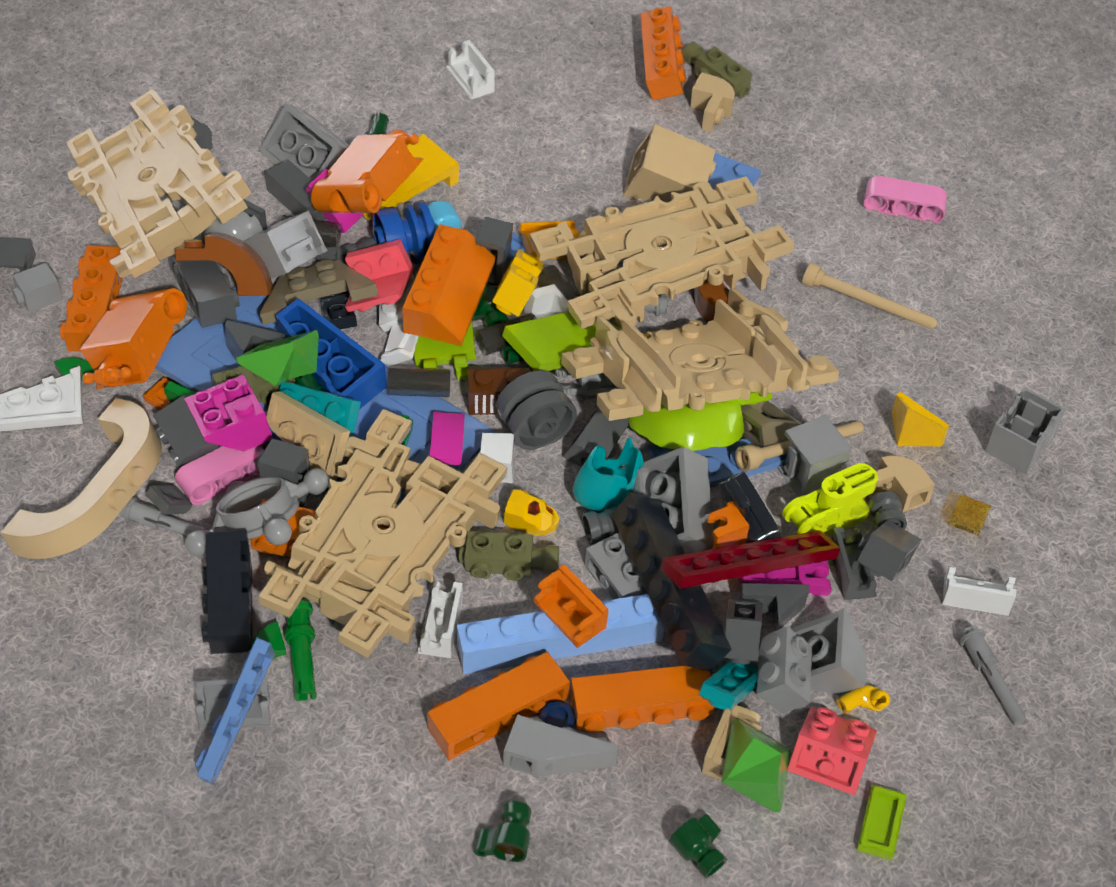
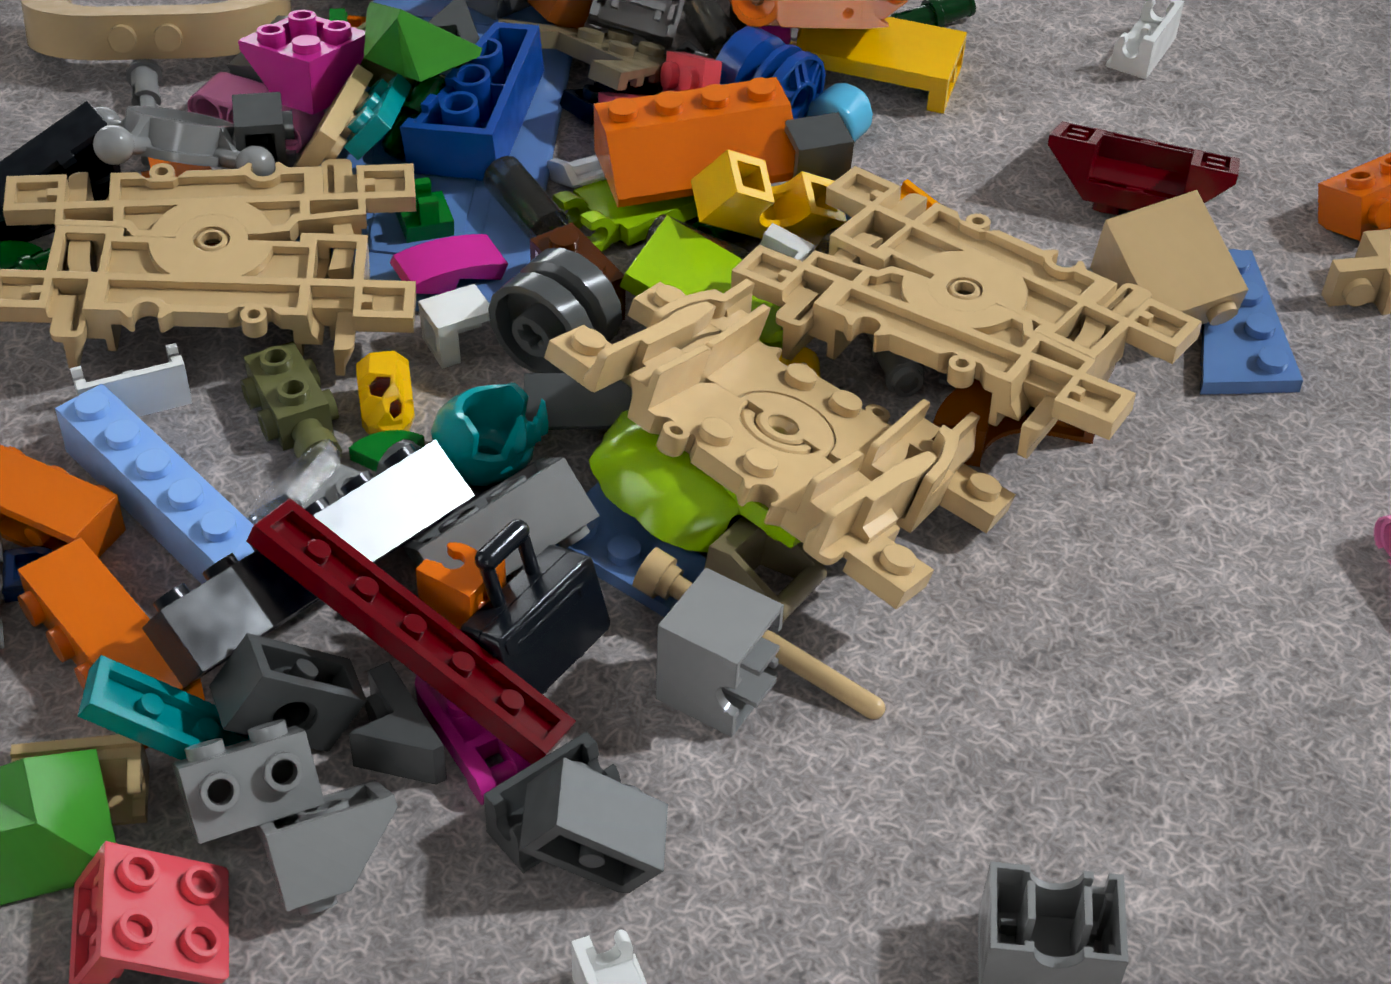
camera: 60 degrees right, 5 degrees down
(168, 499) = (174, 88): dark grey tile -> none
(568, 531) = (372, 447): none -> green tile
(571, 606) = (183, 469): orange hinge -> none
(579, 132) = (1134, 171): none -> dark red slope
(594, 567) = (298, 481): none -> clear tile
(816, 277) = (1146, 527): tan piece -> none
(836, 503) = (643, 715): neon yellow piece -> none
(865, 697) = (285, 932): yellow arm -> none
(890, 509) = (702, 809): dark grey wheel -> none
(904, 478) = (783, 792): tan brick -> none
(916, 424) = (926, 764): yellow slope -> none
(969, 514) = (795, 934): clear yellow plate -> none

